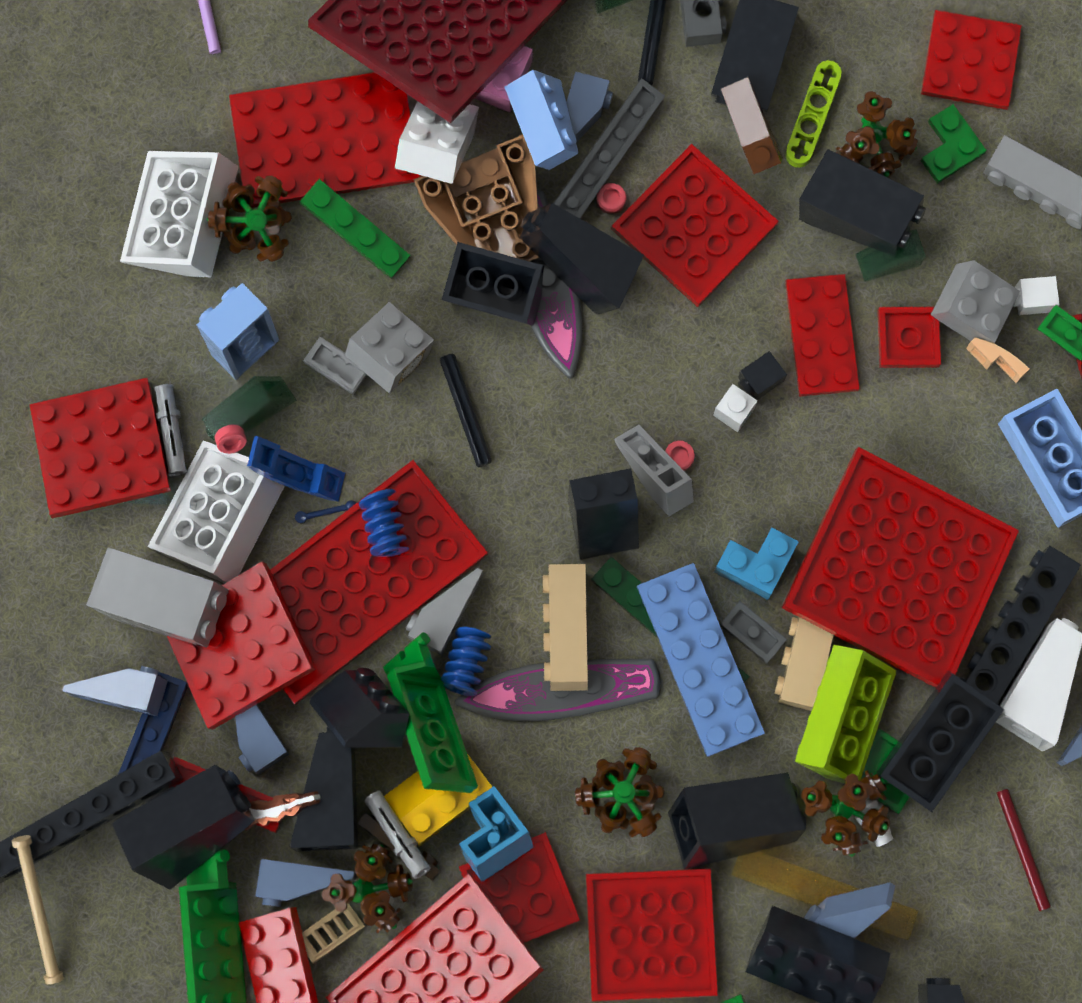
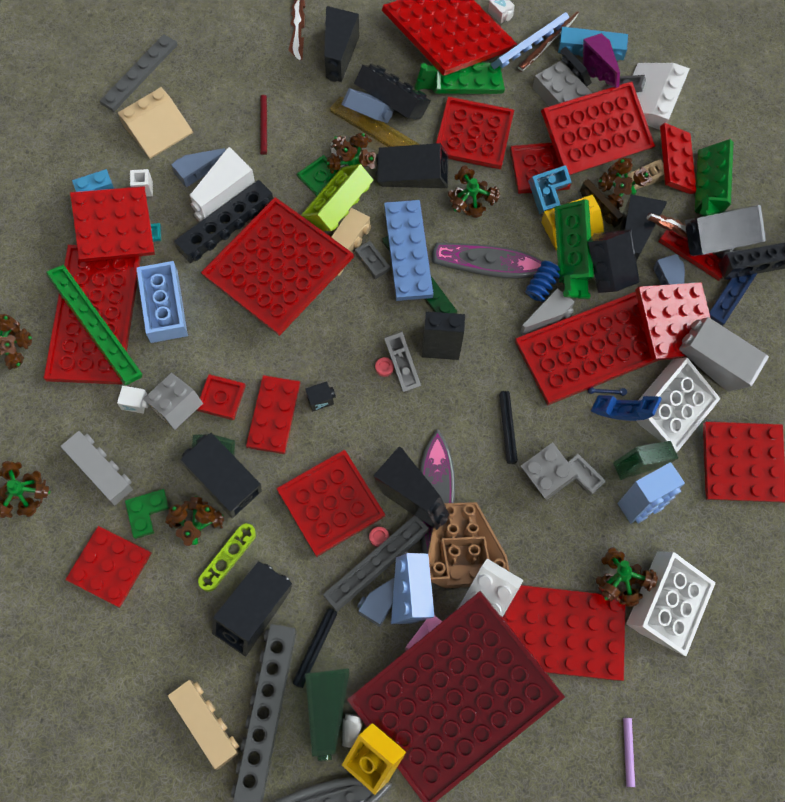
camera: 165 degrees left, 10 degrees down
(125, 689) = (746, 314): slope -> none
(165, 396) = (697, 470): light grey pin -> none
(230, 439) = (662, 437): coral tile -> none
(292, 881) = (674, 198): sand blue slope -> none
(354, 228) = (555, 559): green plate -> none
(382, 524) = (576, 364): blue piece -> none
(416, 864) = (603, 201): light grey pin -> none
(494, 284) = (475, 487): black slope -> none
(567, 627) = (479, 284): tan brick -> none
(735, 408) = (342, 380): white brick -> none
(751, 126) = (272, 549): slope -> none
(757, 571) = (357, 288): dark azure brick -> none
(940, 741) = (289, 169): black brick -> none
(989, 353) = (175, 369): light nougat slope -> none

